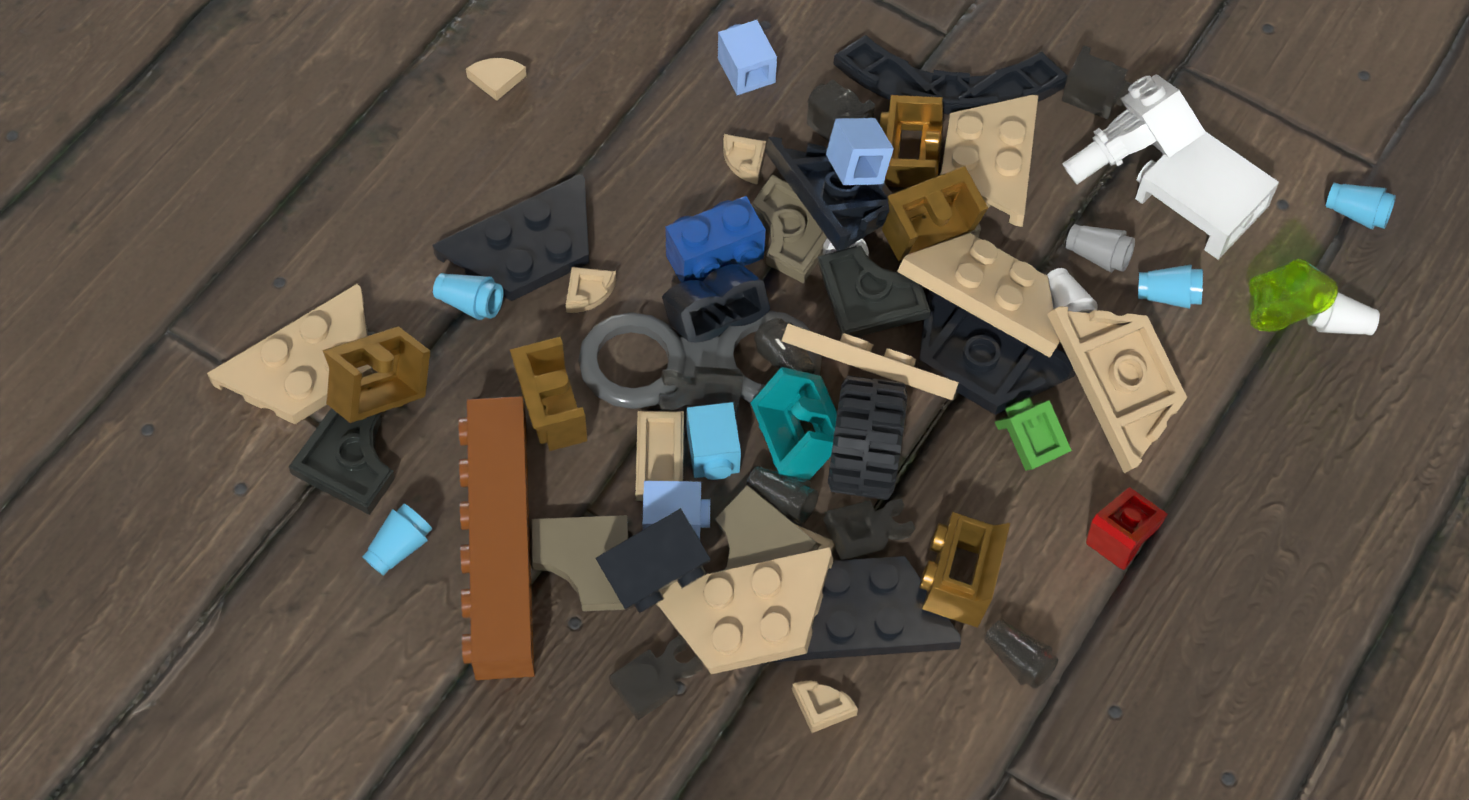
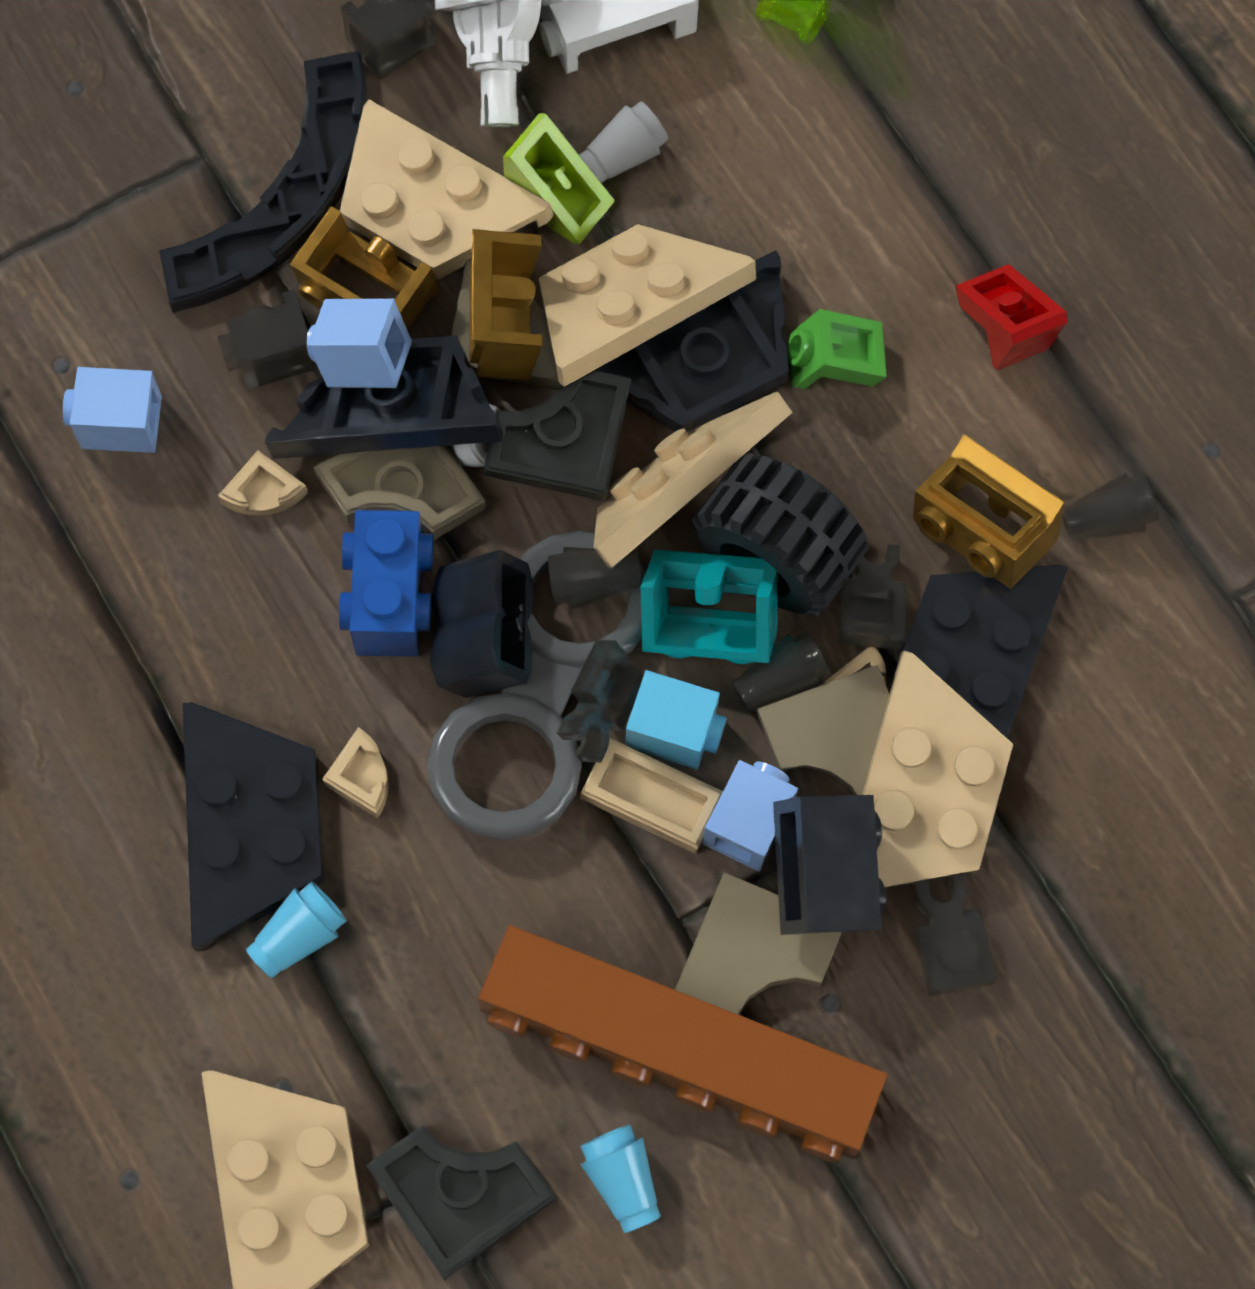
camera: 65 degrees left, 10 degrees up
(399, 379) = (379, 1101): pearl gold window -> none
(549, 394) = (516, 891): pearl gold window -> none
(822, 704) = (1071, 761): tan tile -> none
(1046, 215) = (555, 172): none -> lime slope
(1069, 293) = (683, 214): white cone -> none
(1122, 376) = (820, 215): tan wing -> none
(1172, 286) = (719, 96): medium azure cone -> none

